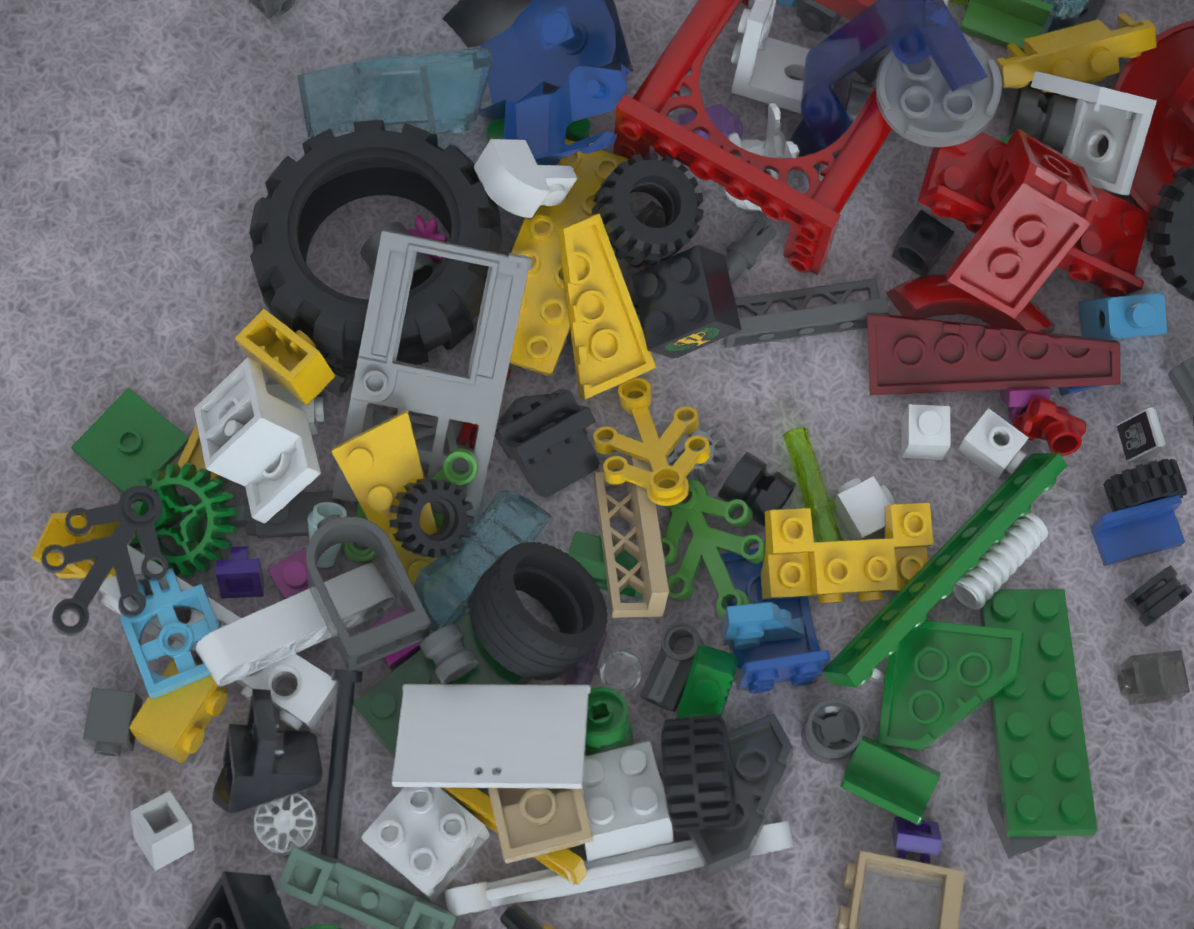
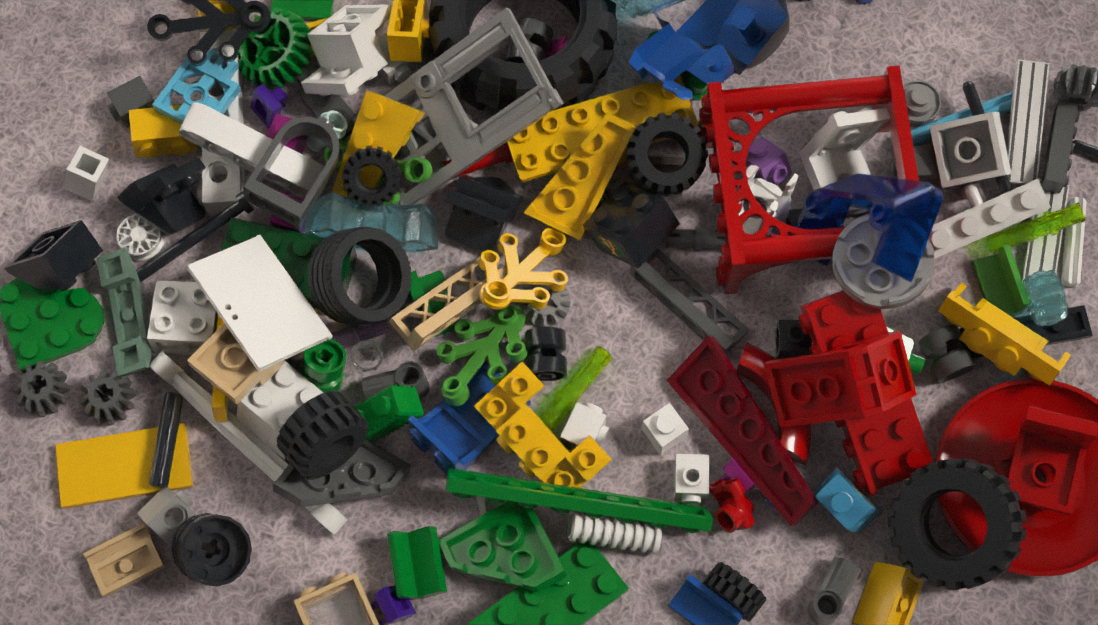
camera: 60 degrees right, 0 degrees up
(448, 653) = (293, 244): dark grey wheel -> none
(517, 181) = (616, 68): white brick -> none
(756, 623) = (446, 407): dark azure wing -> none
(832, 730) = (421, 504): dark grey wheel -> none
(1099, 114) = (970, 386): white bracket -> none
(1141, 435) = (773, 568): slope -> none

